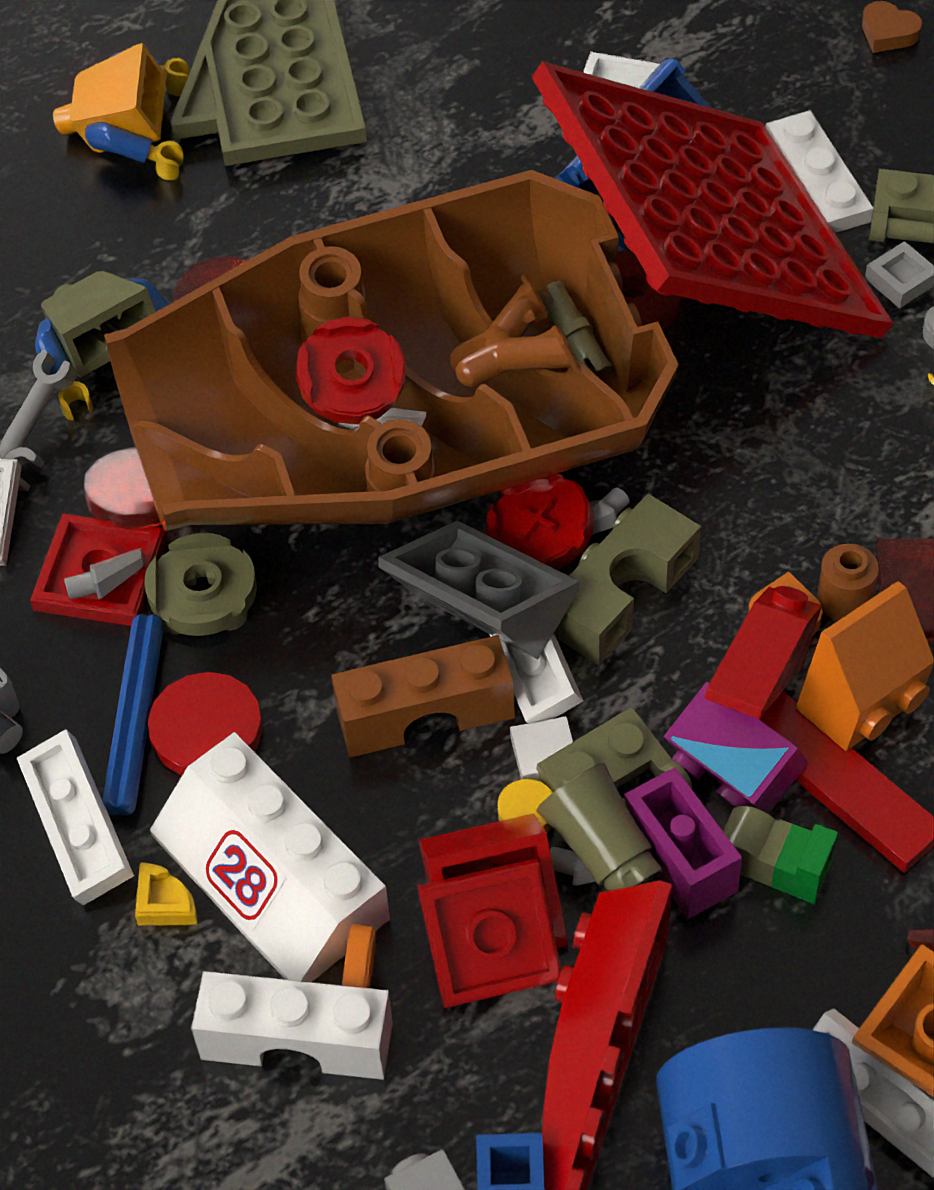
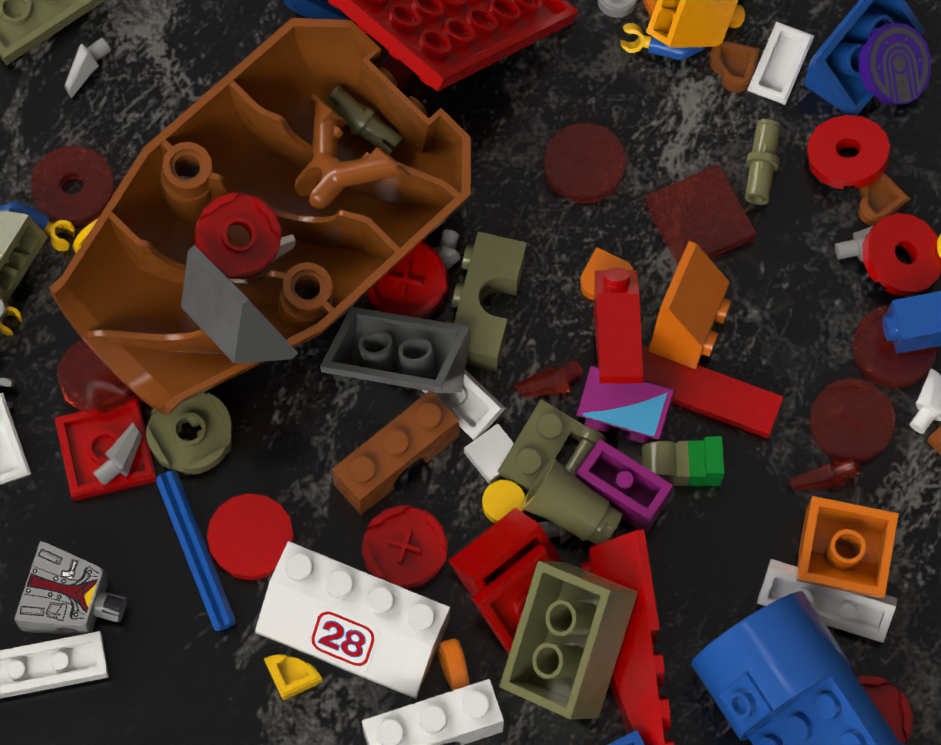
camera: 30 degrees left, 15 degrees up
(74, 817) = (200, 646): white plate -> none
(286, 434) = (229, 315): none -> dark grey slope
(306, 192) = (85, 64): none -> light grey bar
(380, 810) = (405, 547): none -> red tile
(509, 983) = (568, 640): none -> olive brick
(654, 697) = (549, 381): none -> clear red bar
(821, 481) = (584, 162): none -> clear red tile
(846, 579) = (643, 241): dark orange brick -> none

